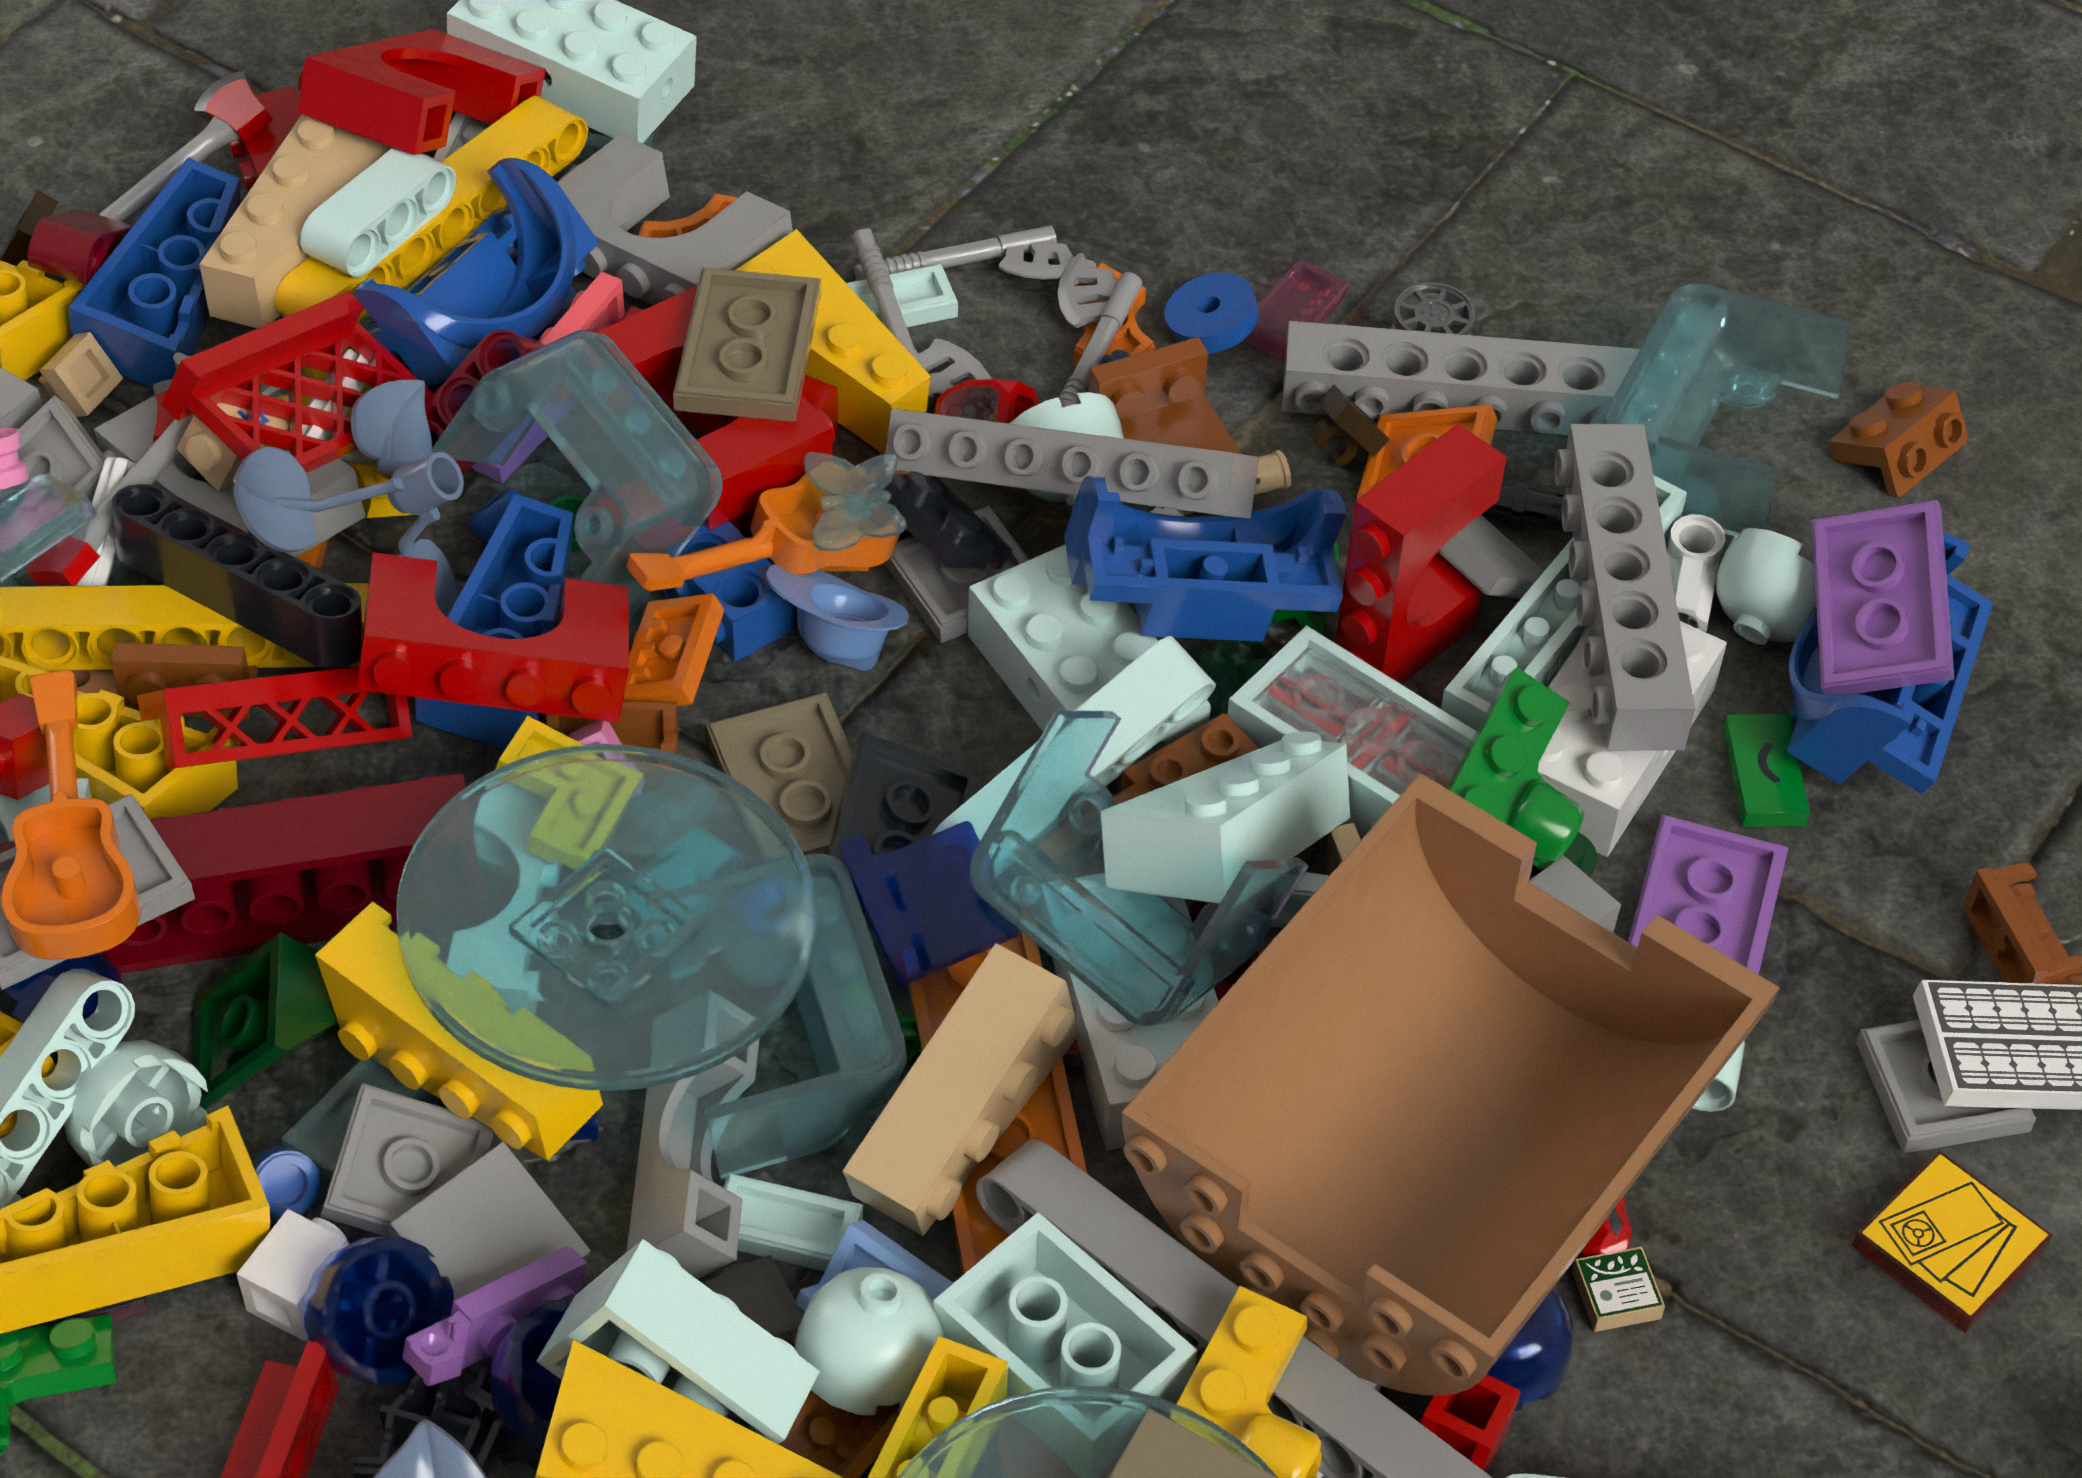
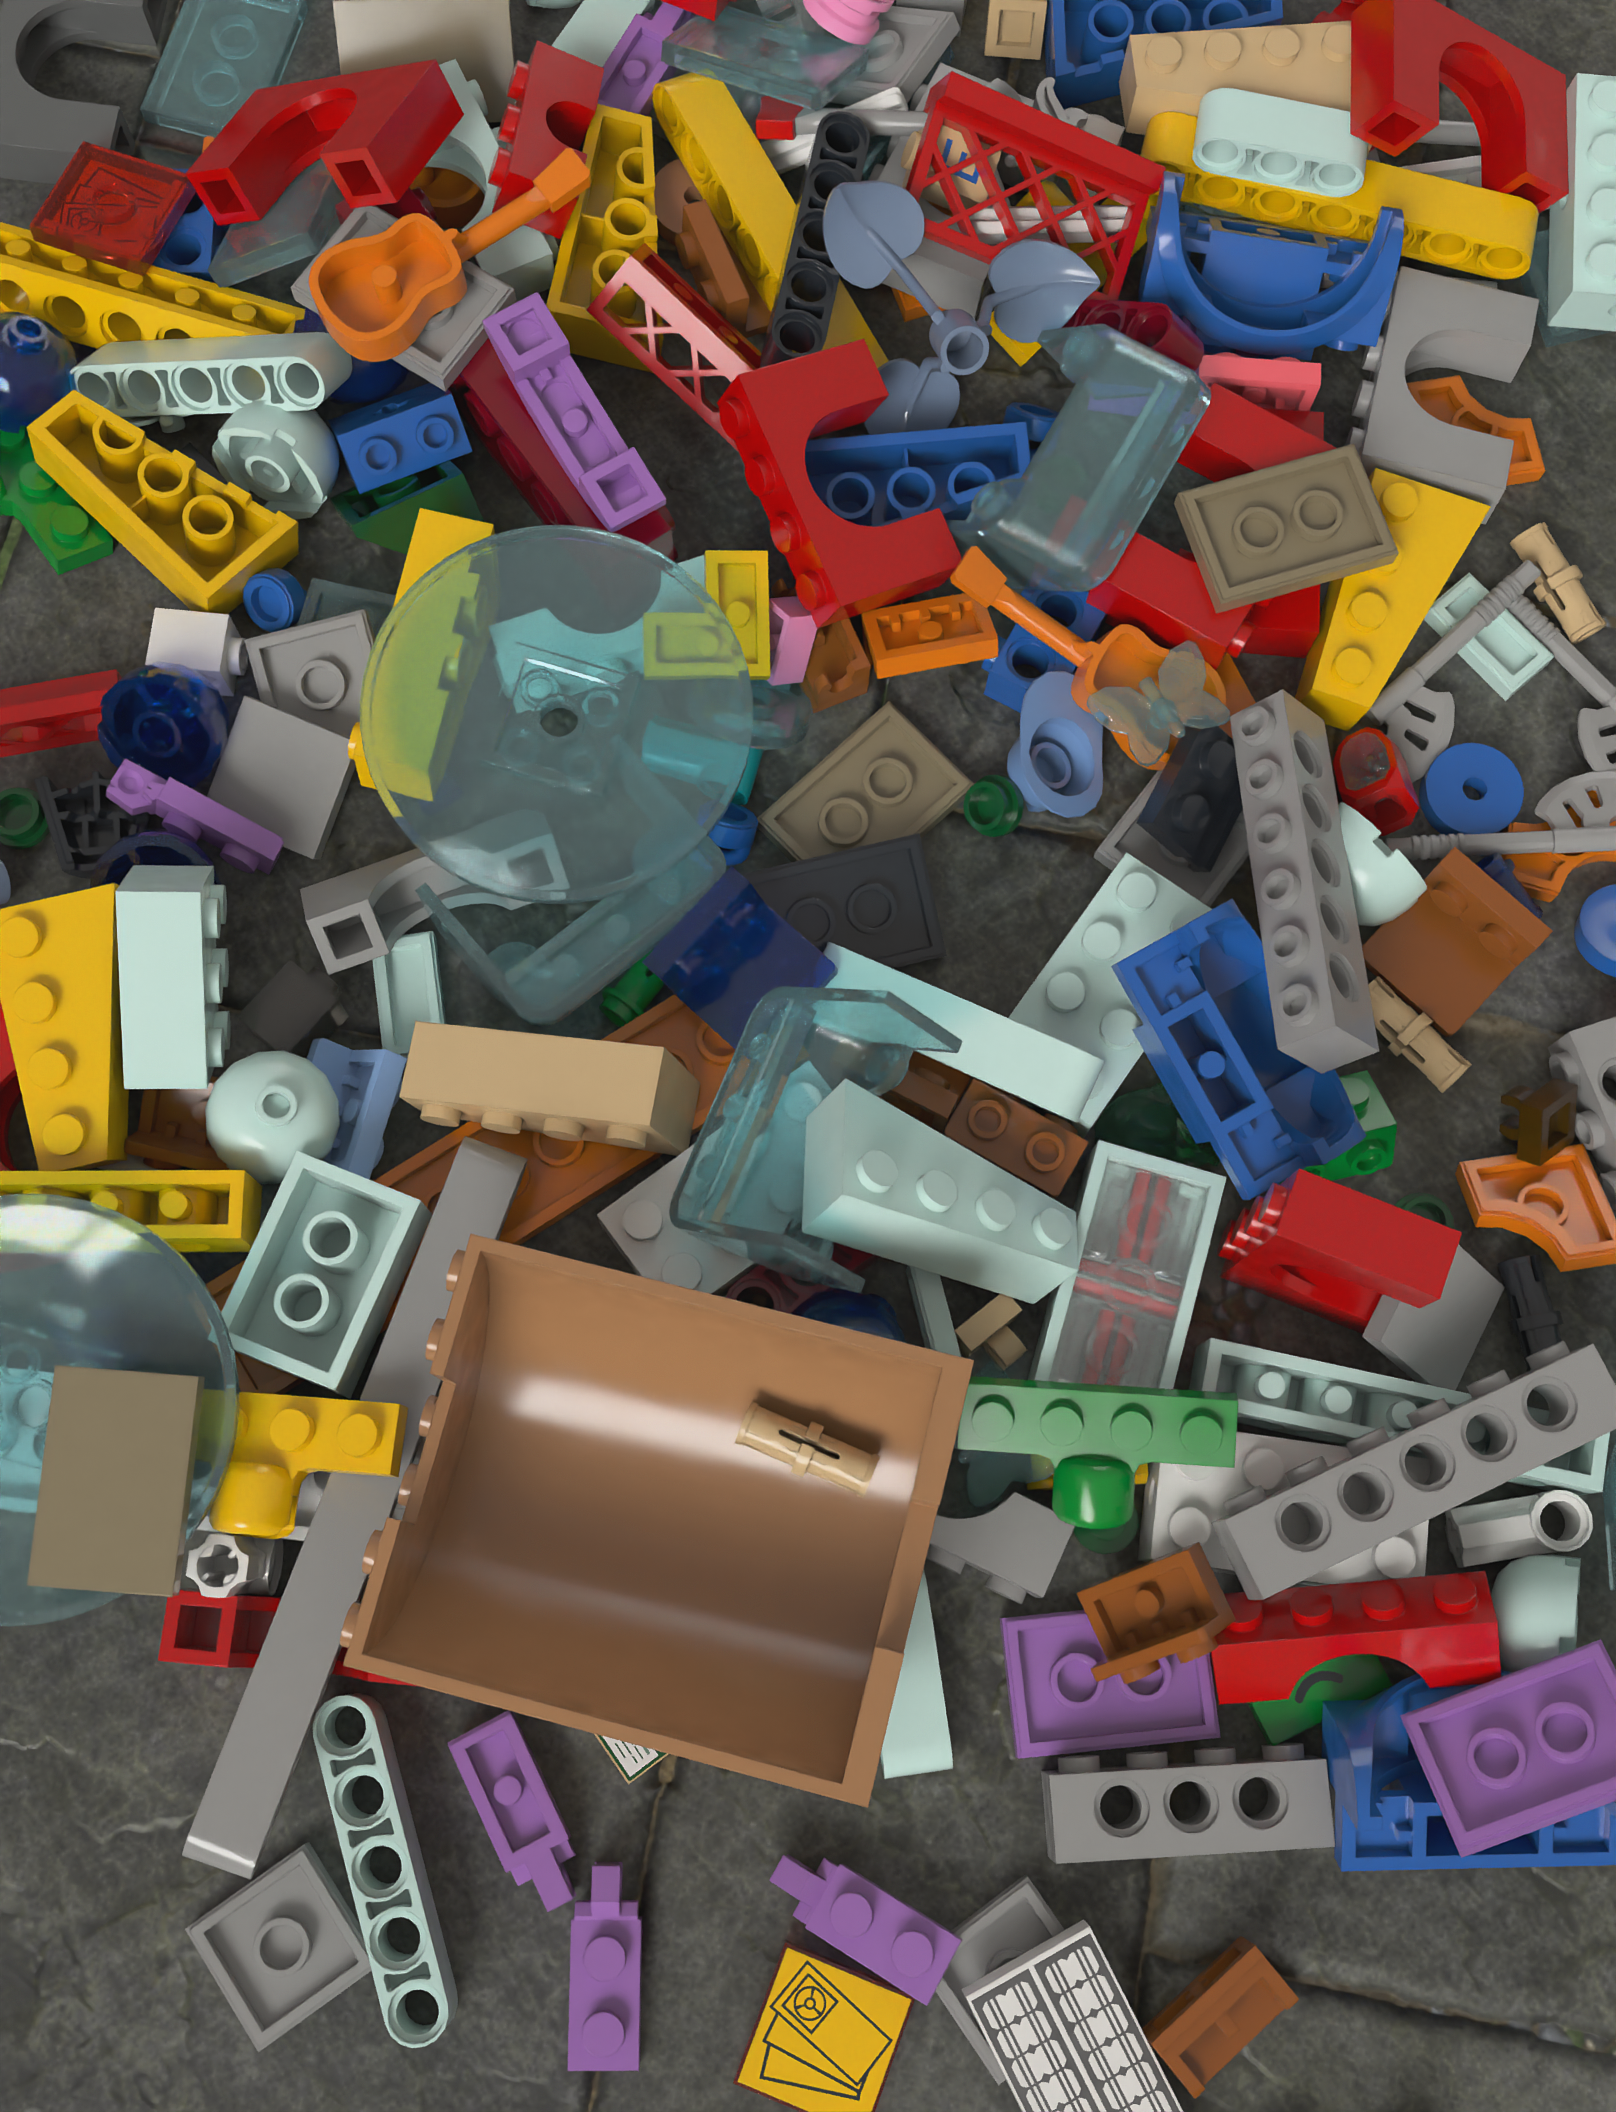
camera: 65 degrees right, 25 degrees up
(192, 1001) = (400, 436): none -> blue brick
(307, 801) = (570, 415): none -> medium lavender slope
(856, 683) = (994, 805): none -> dark green plate
(908, 237) = (1559, 583): none -> tan pin
(1033, 357) = (1484, 770): none -> blue piece
(1422, 992) = (807, 1449): none -> tan pin
(1652, 1406) = (516, 1806): none -> medium lavender hinge
(1670, 822) = (1156, 1612): none -> dark orange bracket
(1724, 770) = (1430, 1623): none -> red arch
(1834, 1395) = (605, 1977): none -> medium lavender hinge
(1840, 890) = (1293, 1818): none -> light grey brick
(1862, 1159) = (870, 1925): none -> medium lavender hinge

